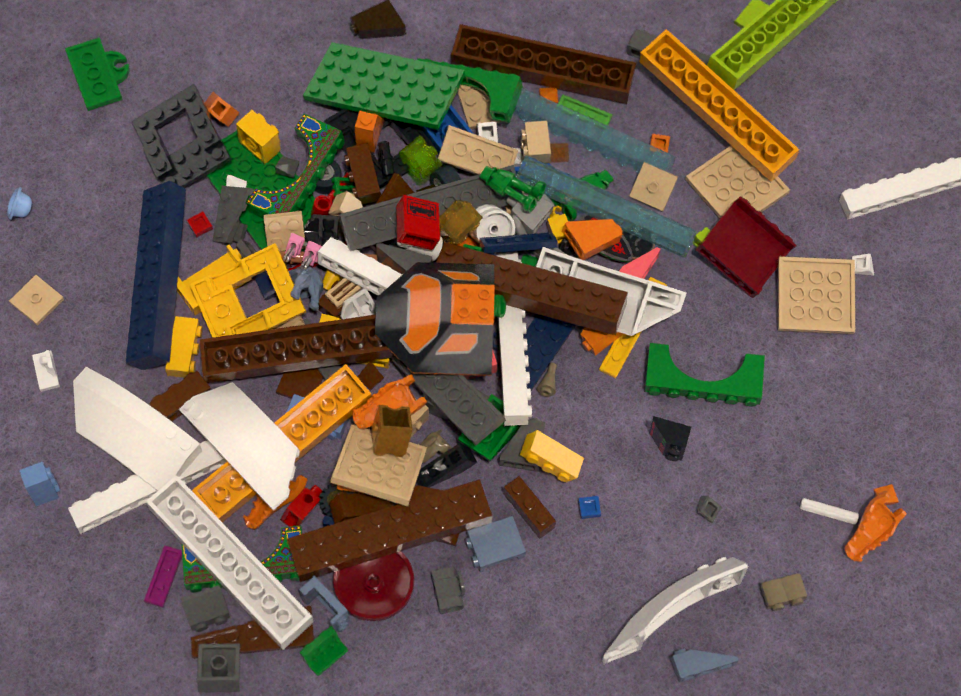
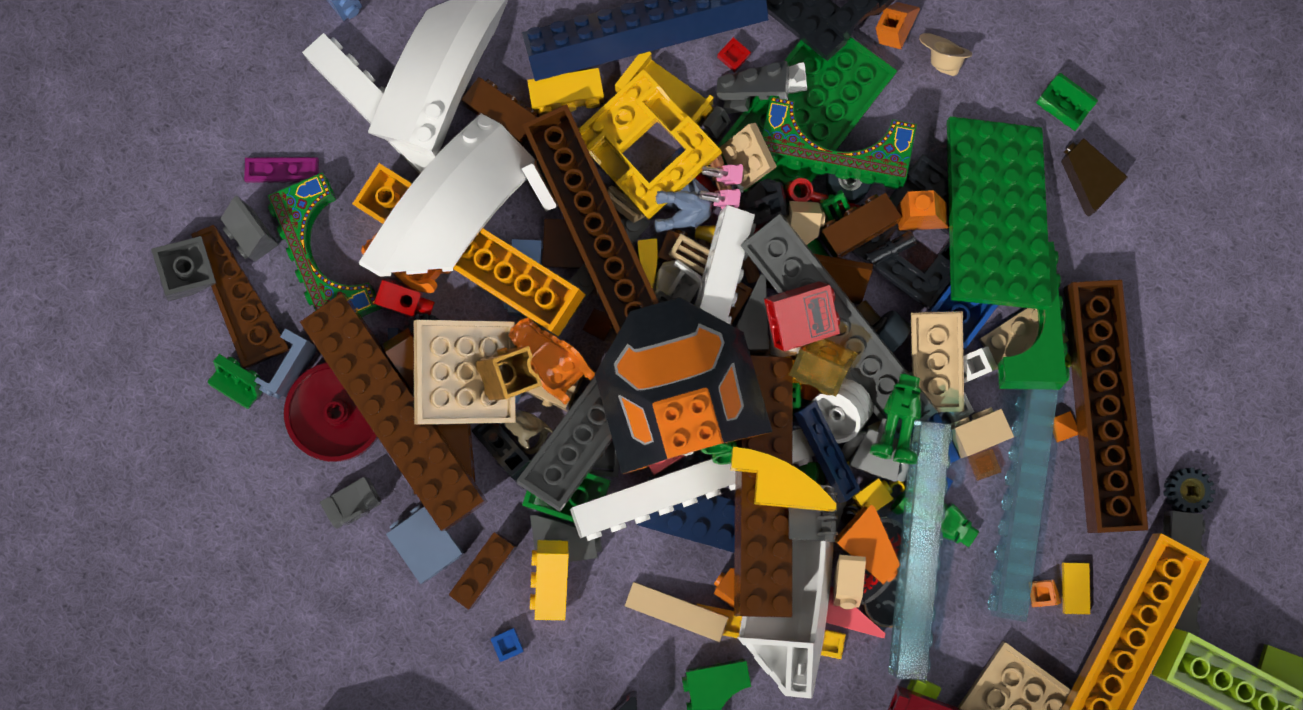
camera: 75 degrees right, 15 degrees up
(230, 562) = (298, 236): white brick -> none
(251, 382) = (540, 185): none -> white slope
(254, 86) = (945, 54): none -> tan piece
(258, 136) = (868, 81): yellow brick -> none
(287, 166) = (844, 130): dark grey slope -> none
(319, 20) = (1067, 101): none -> green bracket
(420, 158) = (903, 290): clear neon green brick -> none
(531, 267) = (780, 482): none -> yellow slope
(548, 386) = (653, 545): dark tan cone -> none
(560, 259) = (813, 524): none -> dark grey hinge
(586, 110) = (1057, 481): bright green tile -> none
(600, 382) = (676, 611): none -> tan tile
(614, 254) = (849, 581): none -> tan slope
(615, 39) = (1179, 490): none -> black wheel
(653, 186) = (974, 604): tan plate -> none
(662, 122) = (1076, 588): none -> yellow tile

